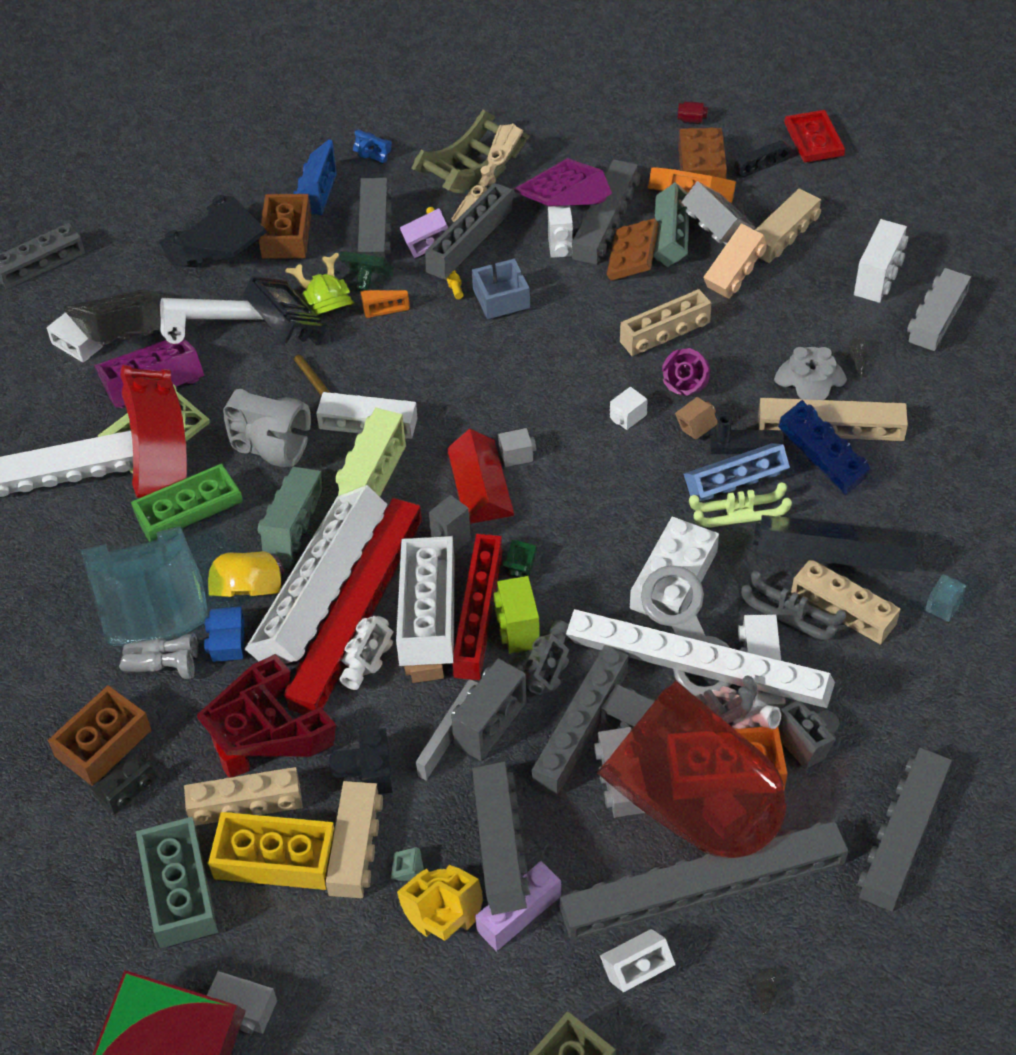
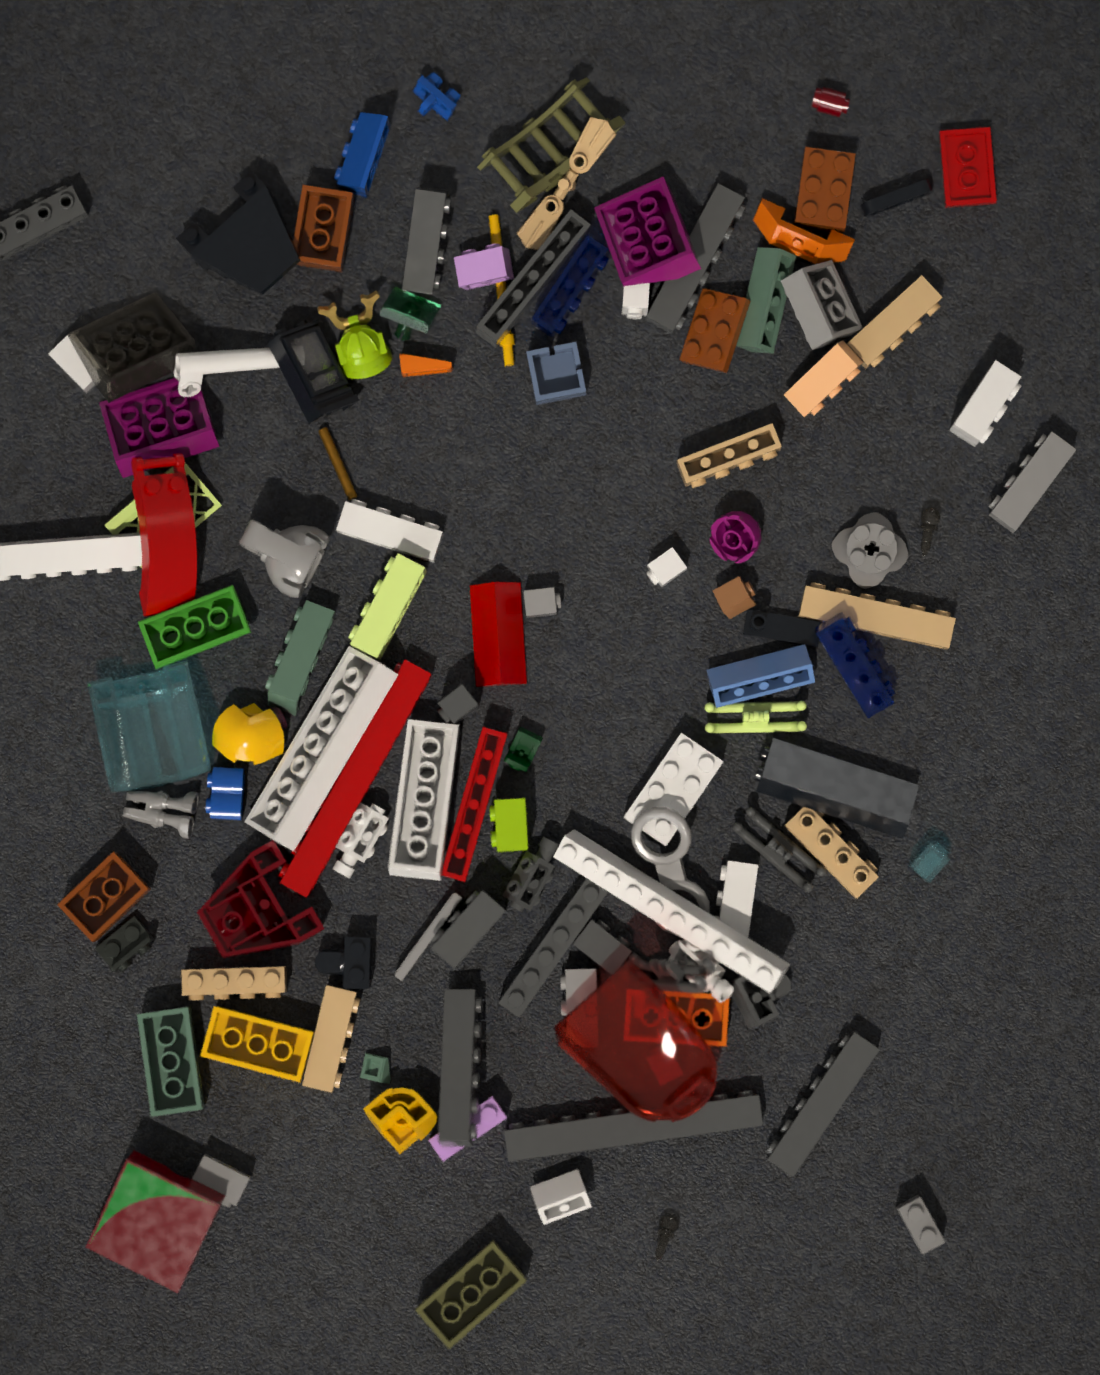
camera: 10 degrees right, 35 degrees up
(503, 233) = (569, 287): none -> clear blue brick

